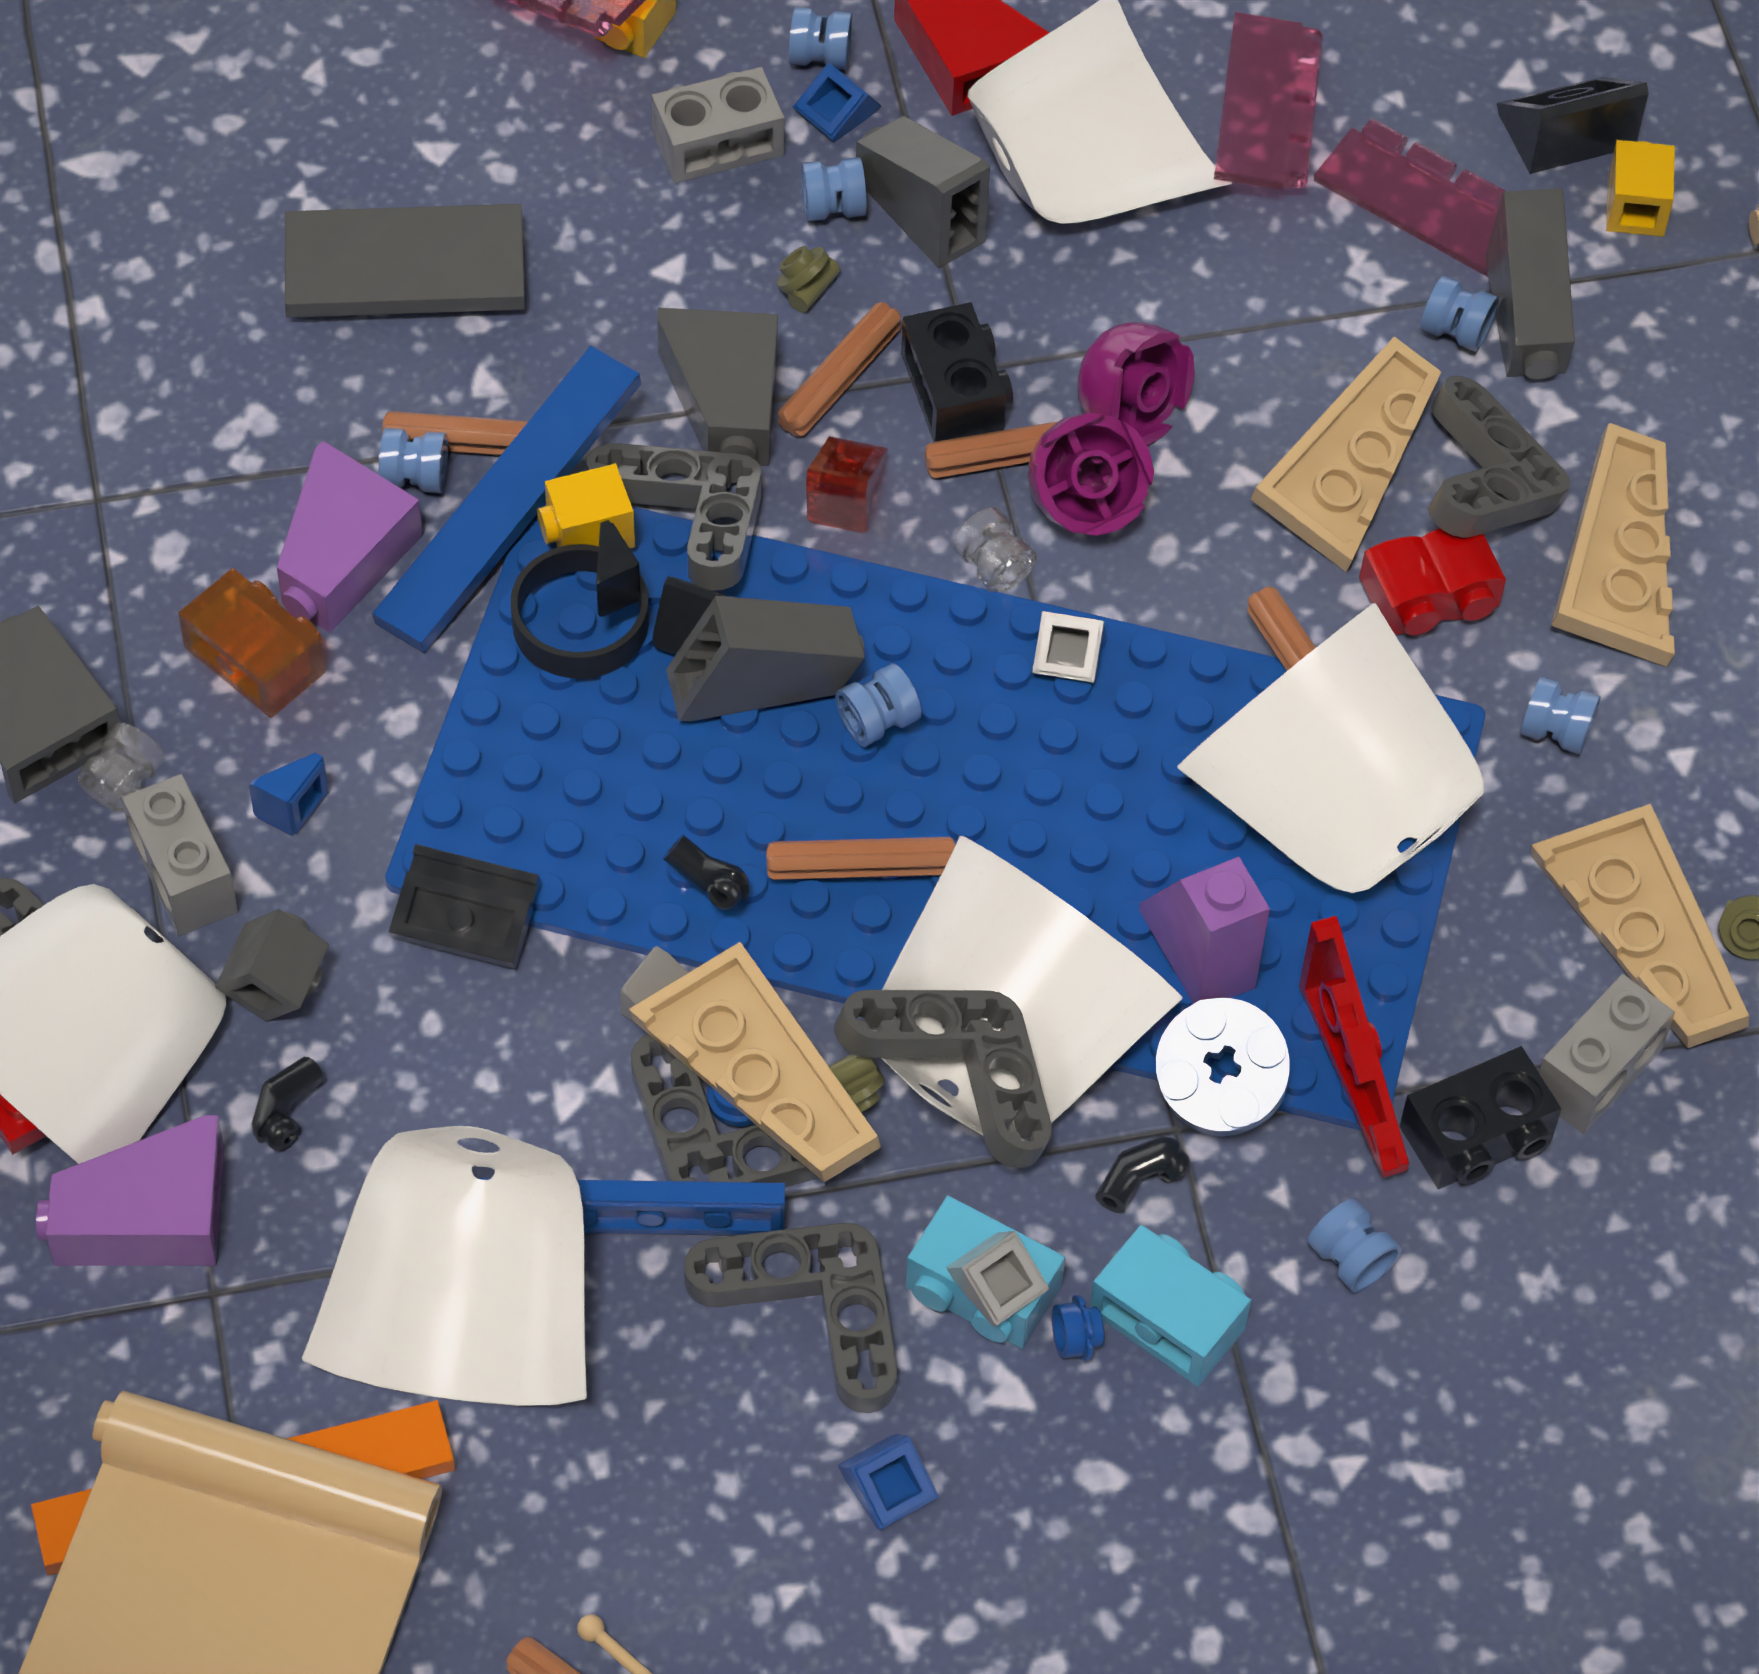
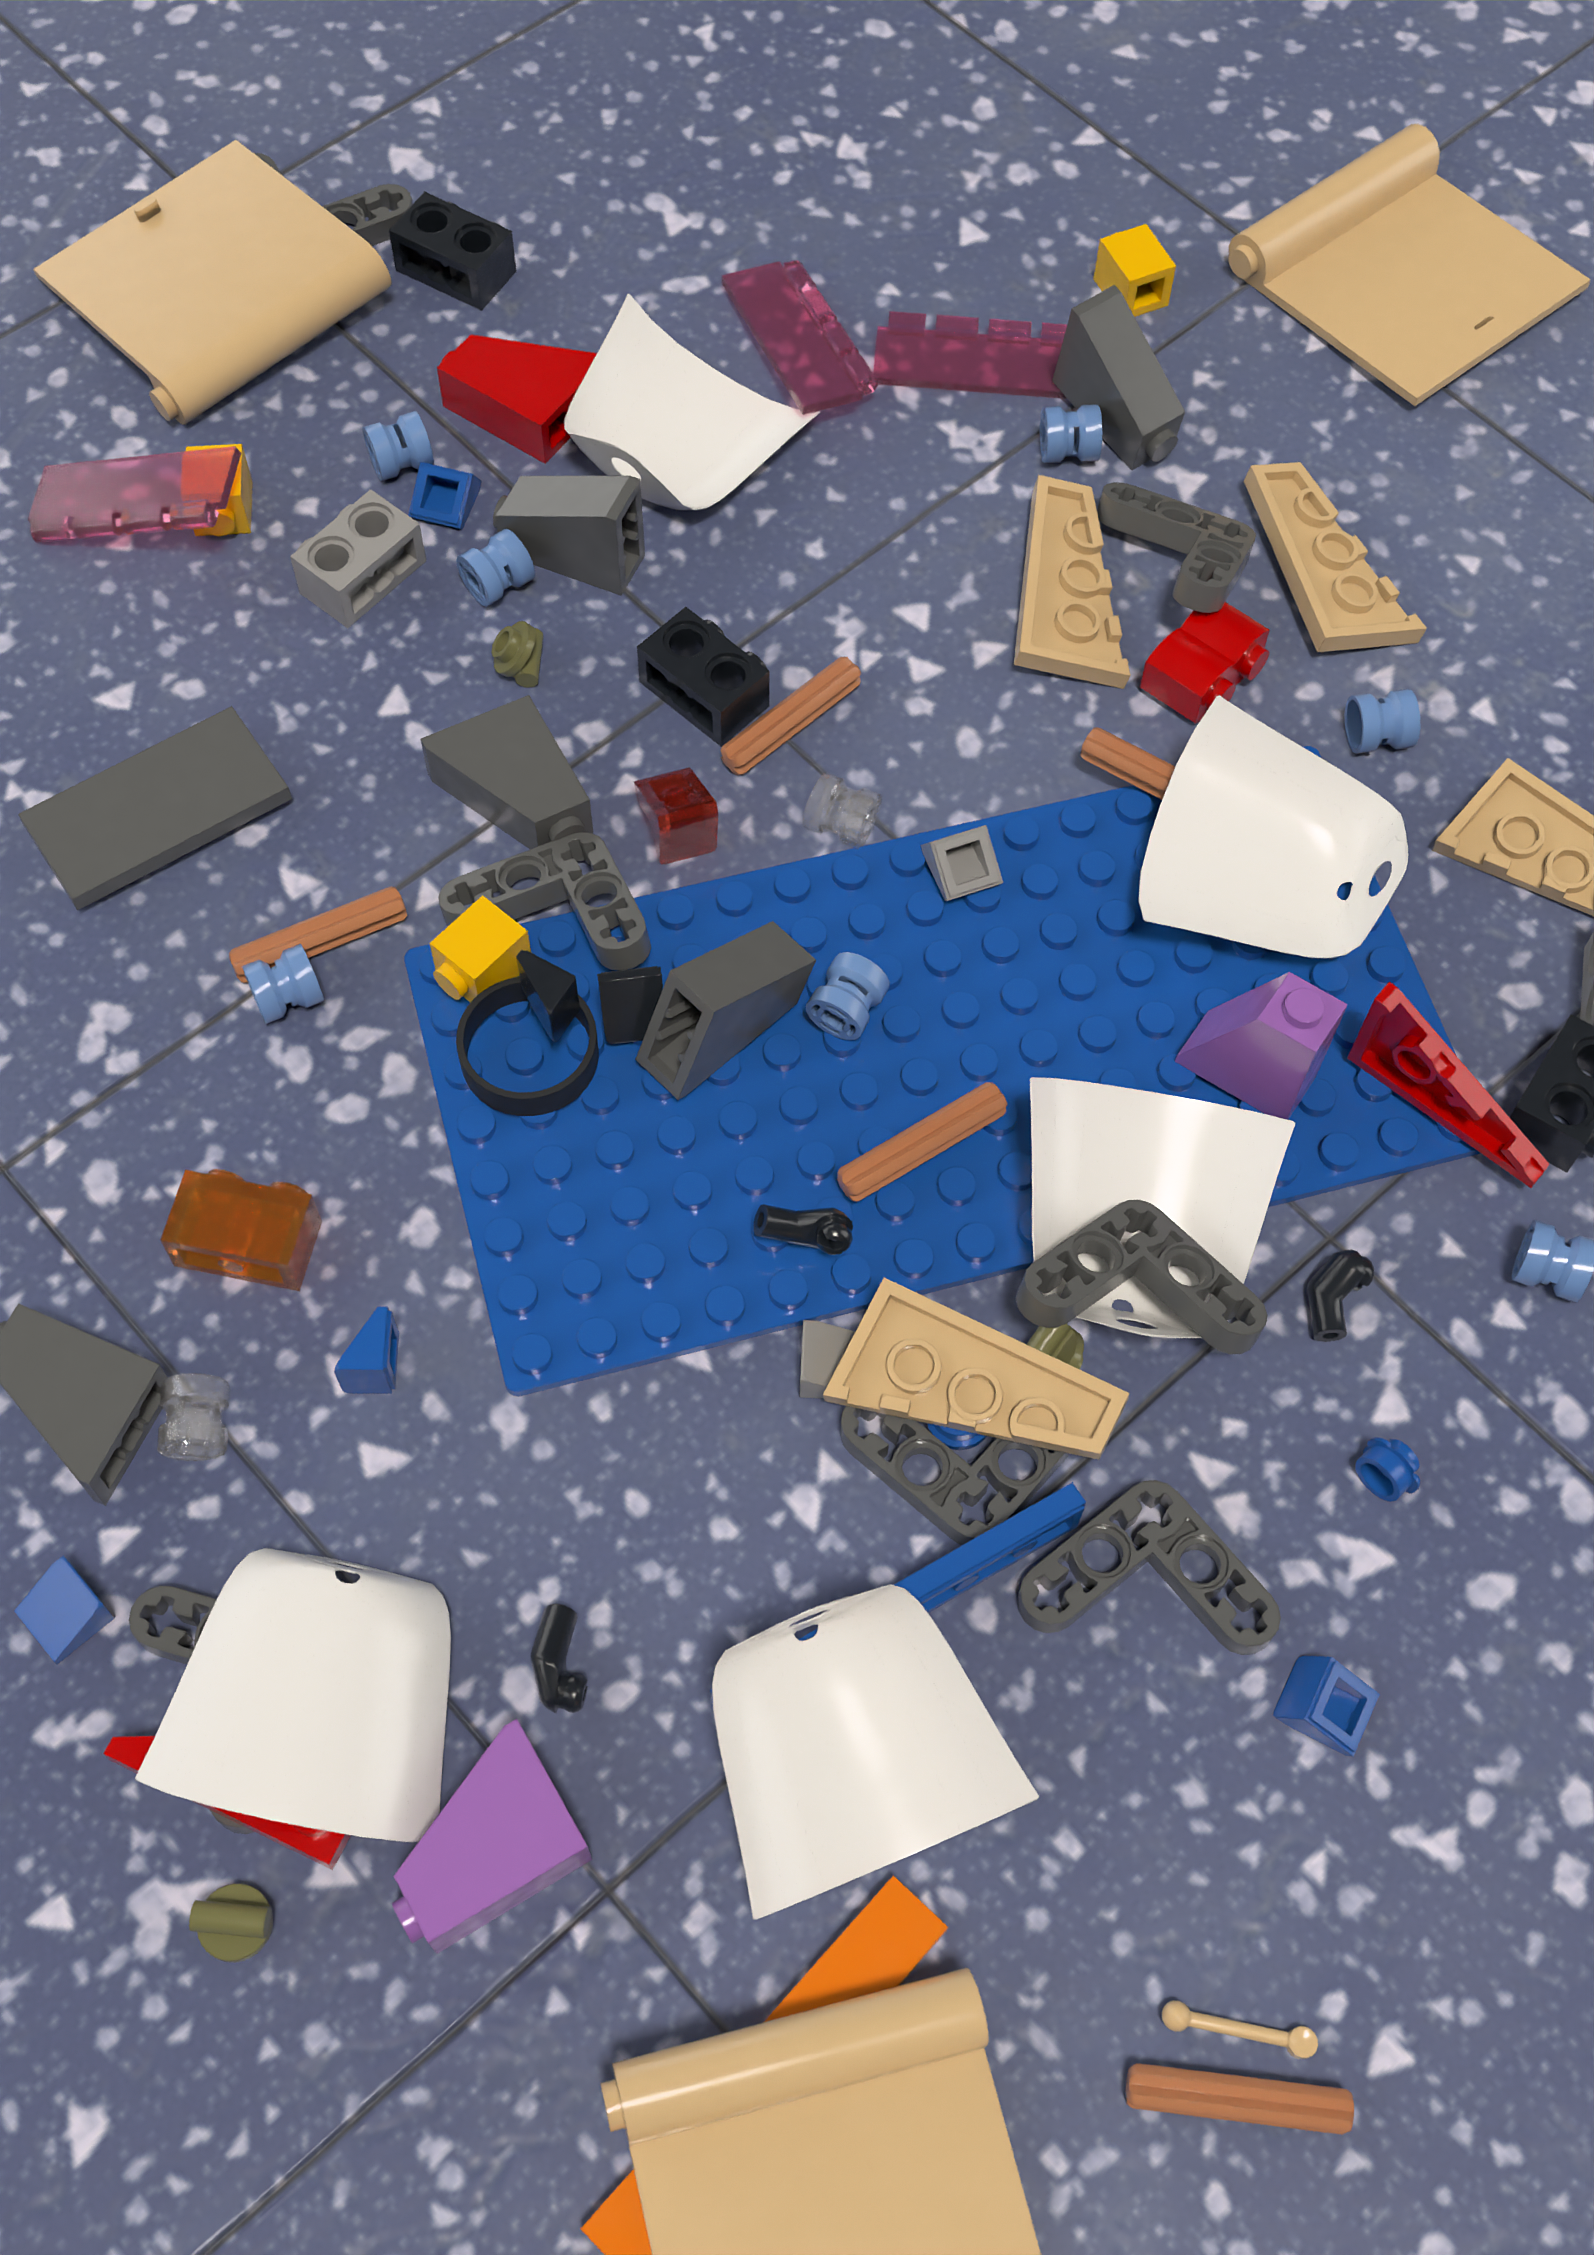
camera: 30 degrees left, 5 degrees up
(180, 854) = (306, 1473): light grey brick -> none
(273, 965) = (466, 1533): dark grey brick -> none
(343, 537) = (264, 1087): medium lavender slope -> none
(465, 906) = (604, 1376): black plate -> none
(506, 499) = (392, 979): blue tile -> none
(839, 369) = (601, 719): nougat axle -> none
(950, 1236) = (1283, 1464): medium azure brick -> none
(998, 1276) = (1315, 1463): light grey slope -> none
(1090, 473) = (884, 704): magenta cylinder -> none
(1137, 377) = (857, 609): magenta cylinder -> none
(1171, 1304) = (1453, 1400): medium azure brick -> none
(1209, 1031) = (1392, 1159): brick -> none
(1574, 121) = (1045, 241): black slope -> none

